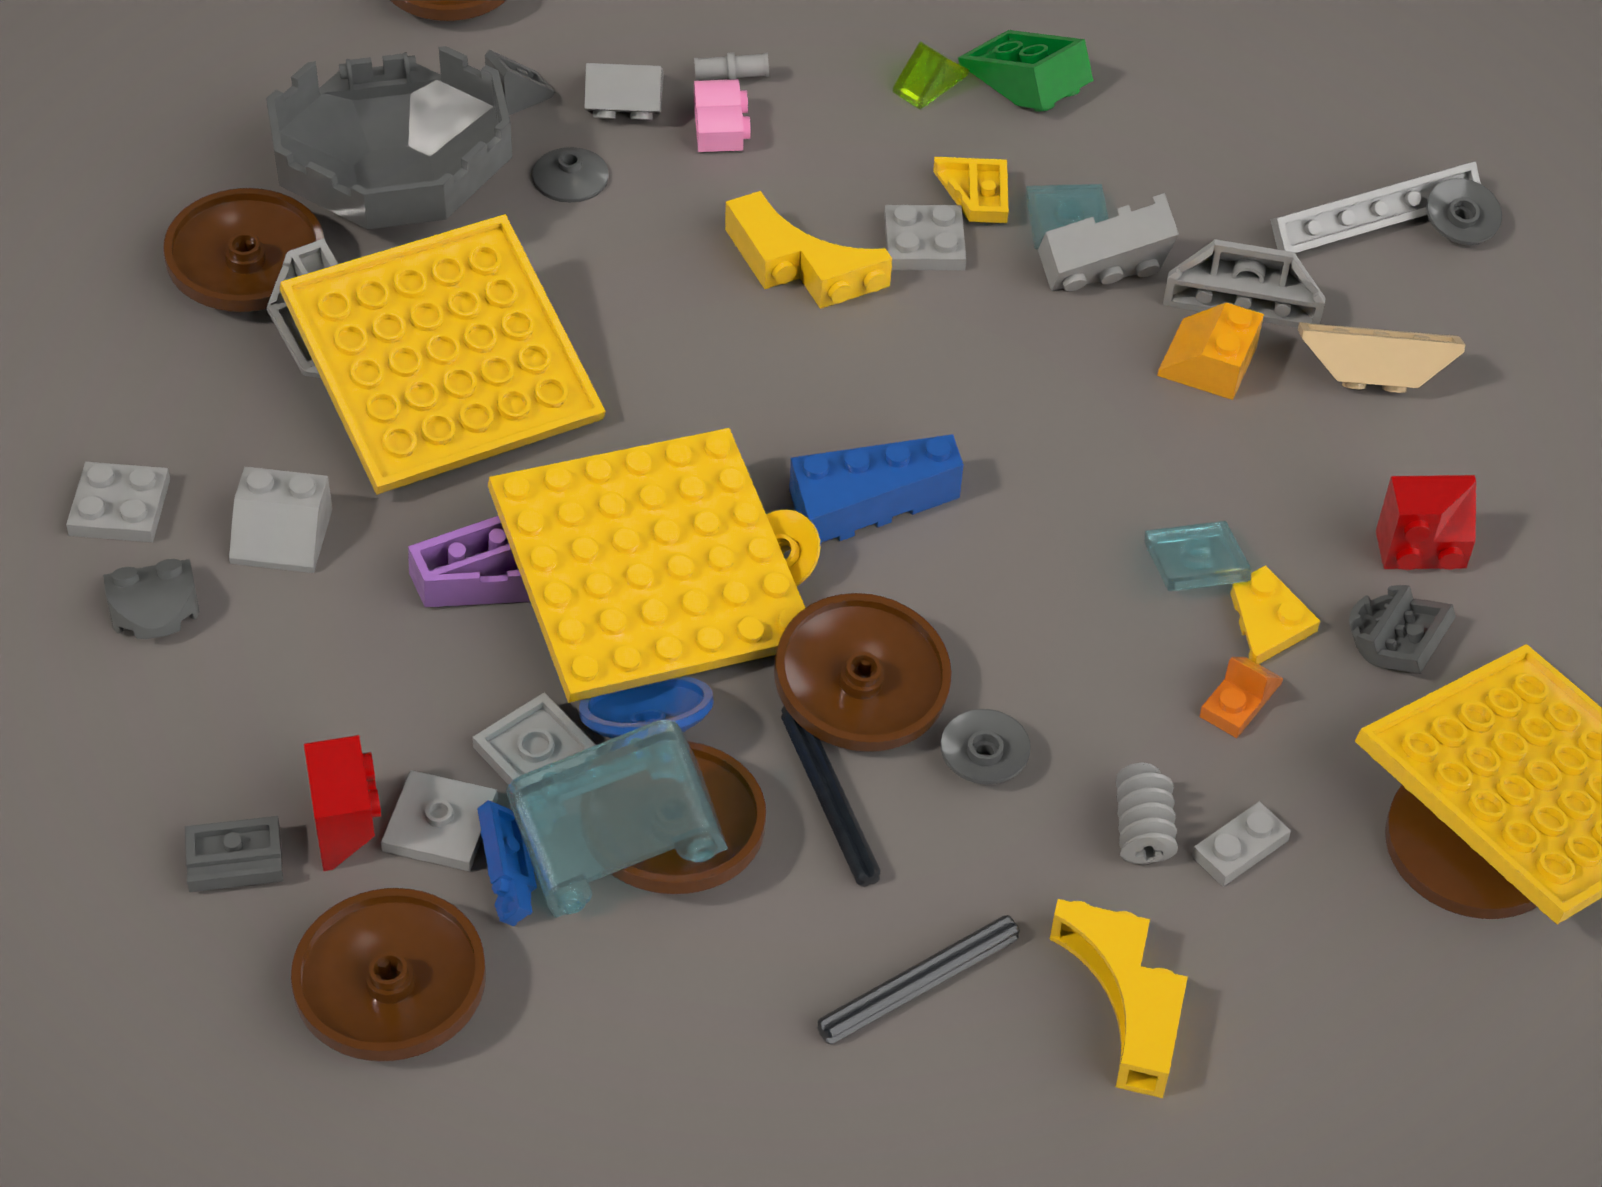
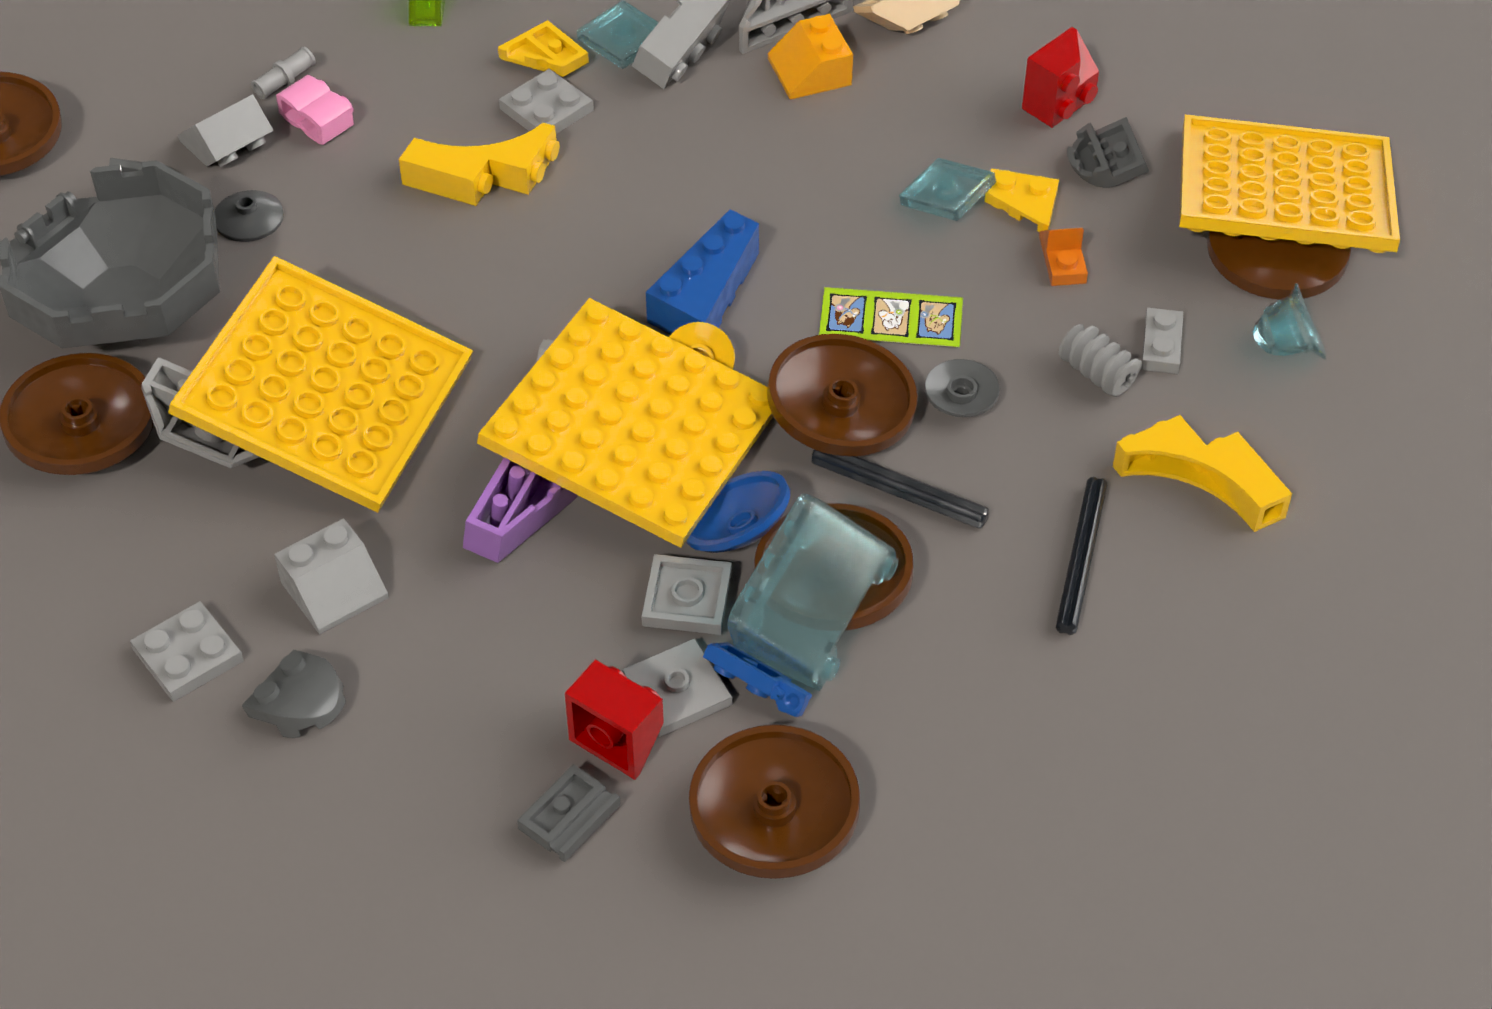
camera: 40 degrees left, 0 degrees up
(1011, 639) = (892, 316): none -> sticker
(1381, 924) = (1288, 328): none -> clear light blue piece

